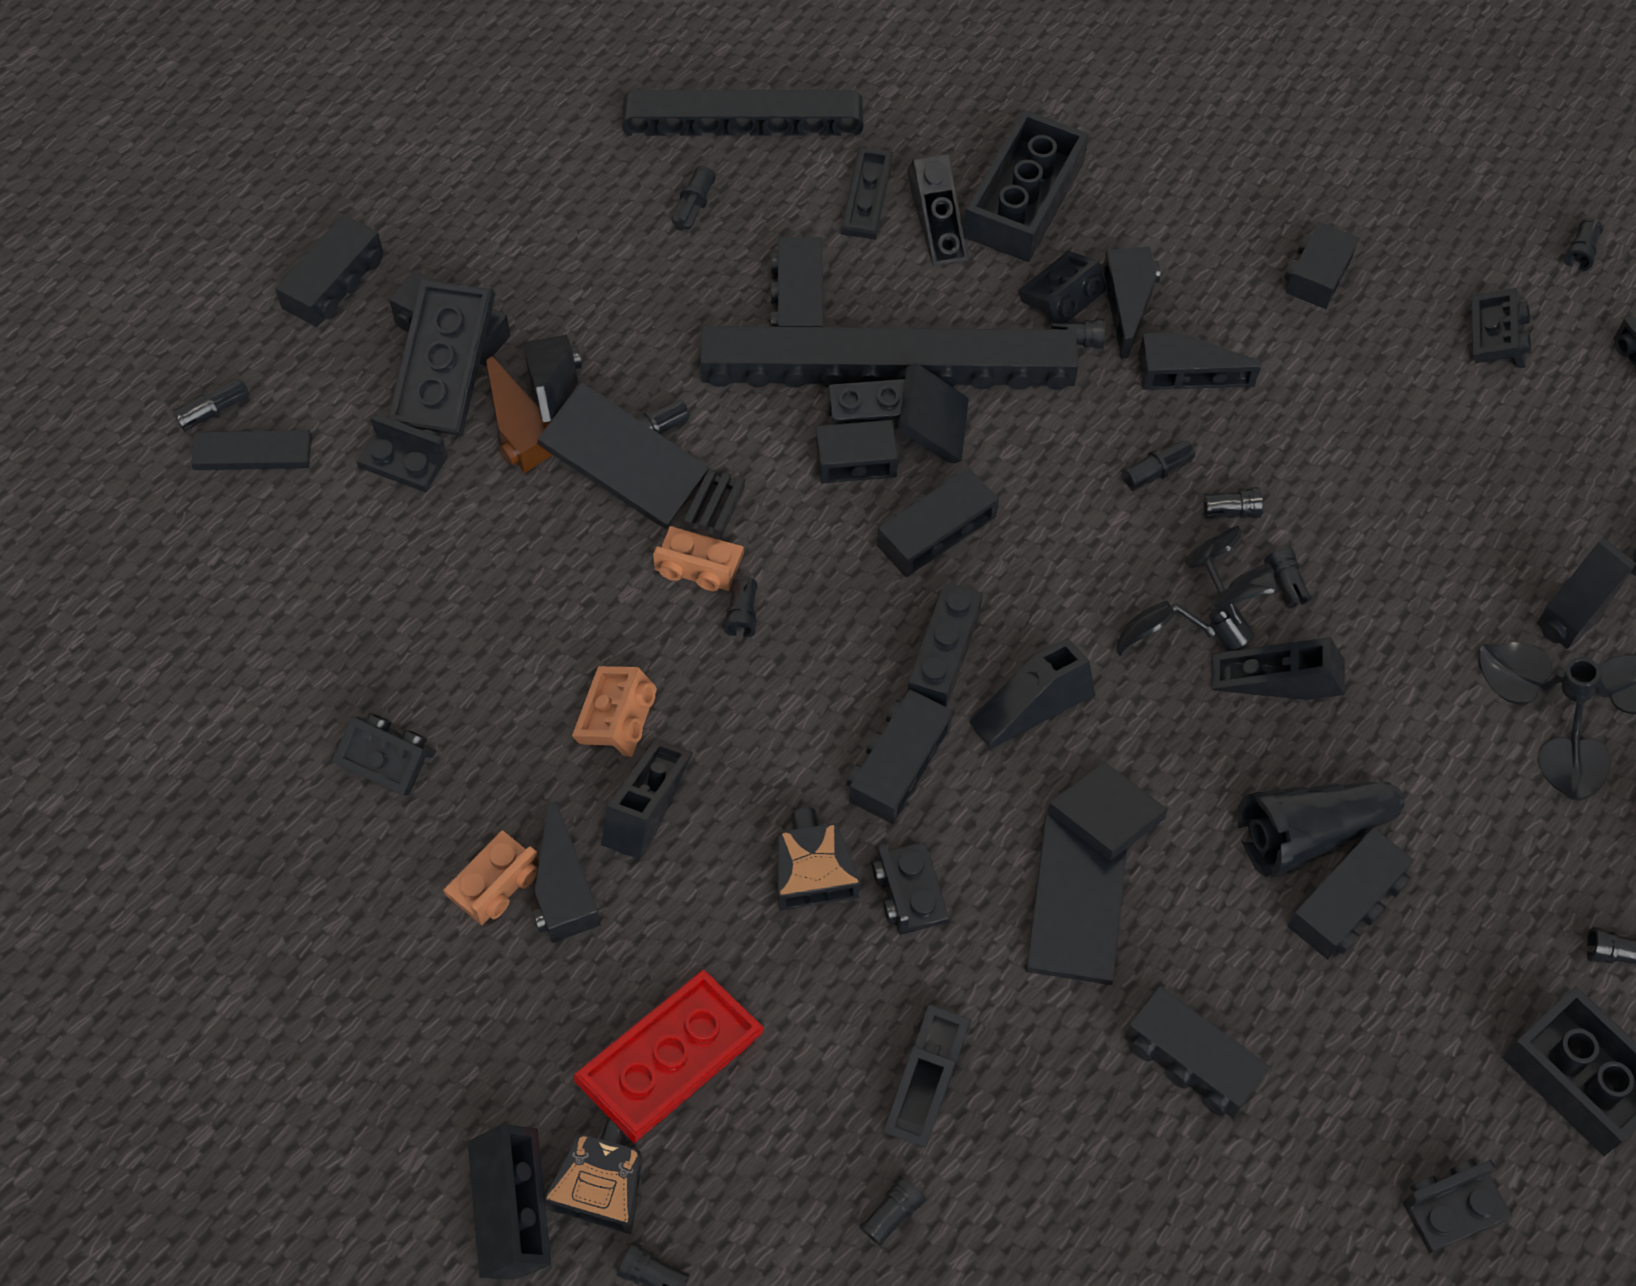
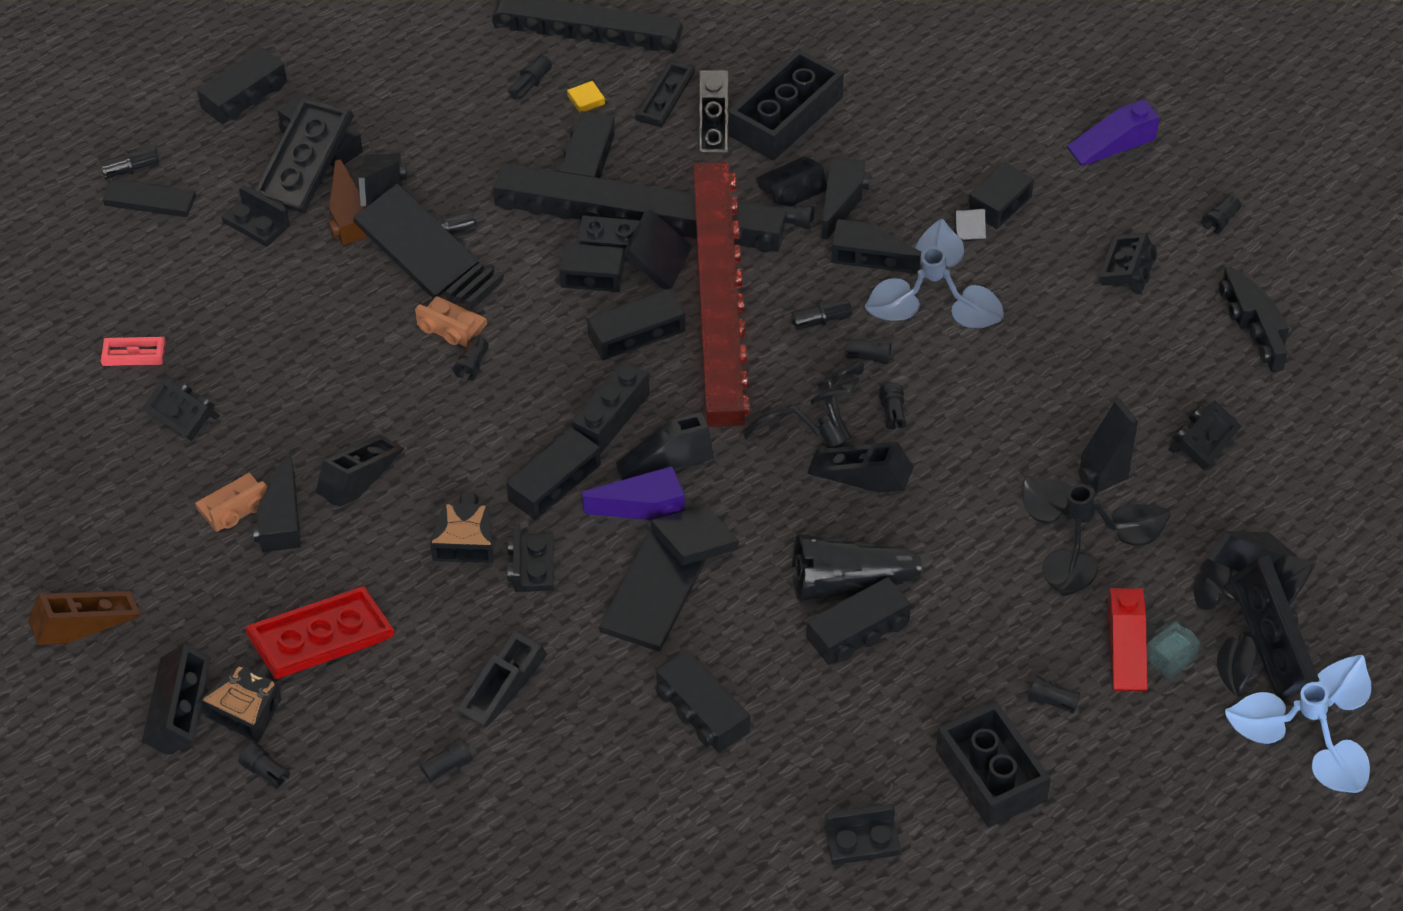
camera: 15 degrees right, 10 degrees down
(298, 690) = (133, 354): none -> coral tile
(336, 1095) = (72, 616): none -> reddish brown slope
(615, 709) = (357, 409): nougat bracket -> none
(771, 213) = (586, 96): none -> yellow tile
(1025, 768) = (637, 497): none -> dark purple slope
(1035, 467) = (719, 295): none -> clear red brick
(1239, 431) = (939, 249): none -> sand blue plant
(1297, 309) = (970, 223): none -> tile
(1428, 158) = (1118, 132): none -> dark purple slope

